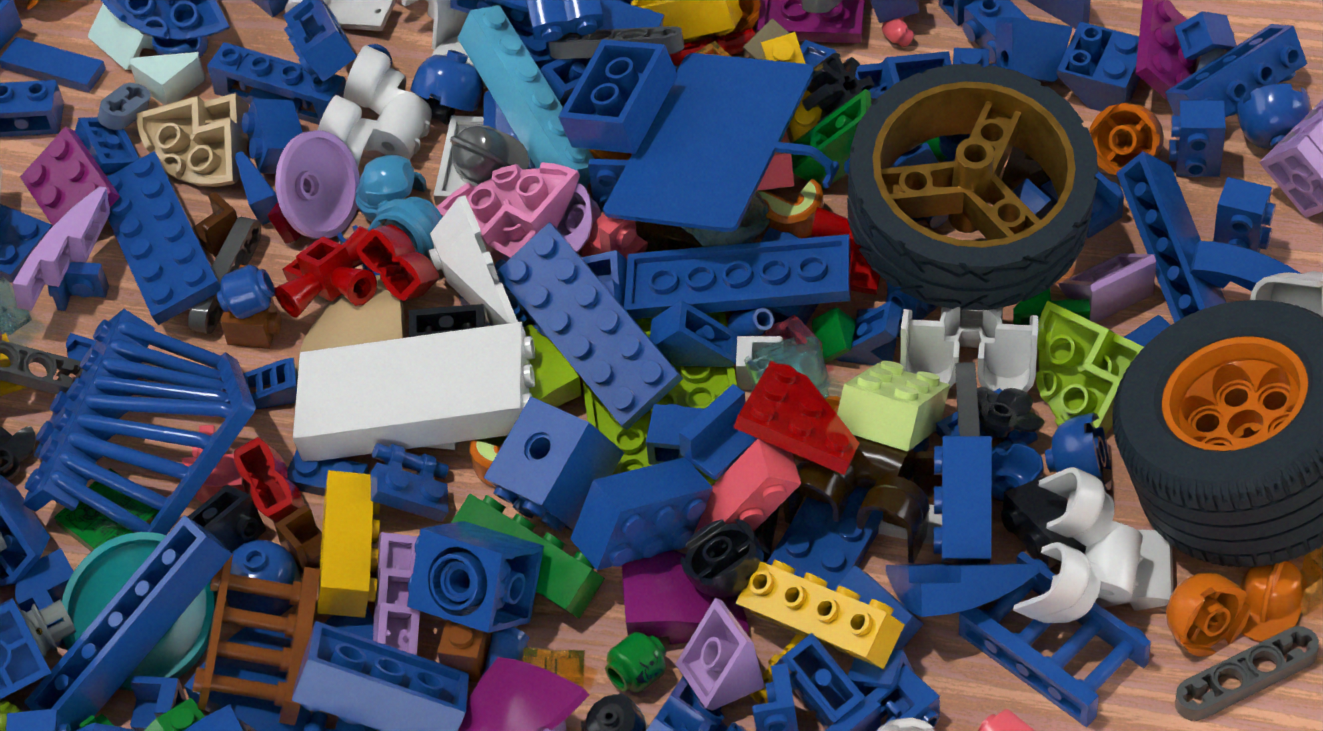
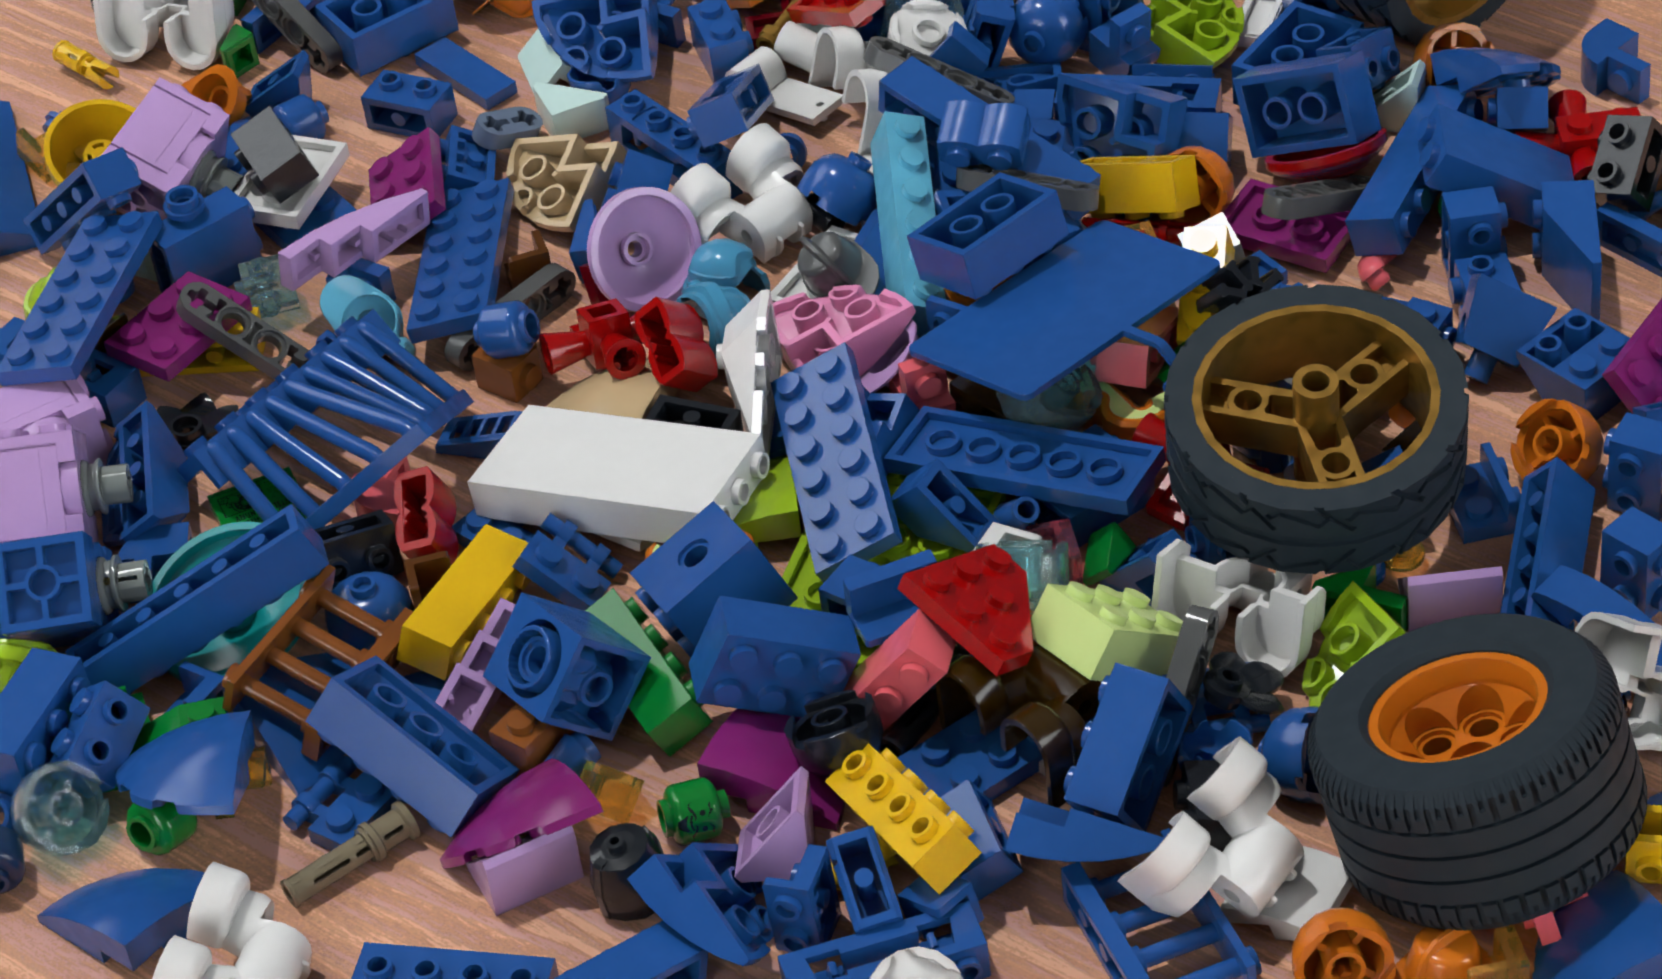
camera: 25 degrees right, 10 degrees down
(89, 304) = (352, 296): none -> medium azure hair

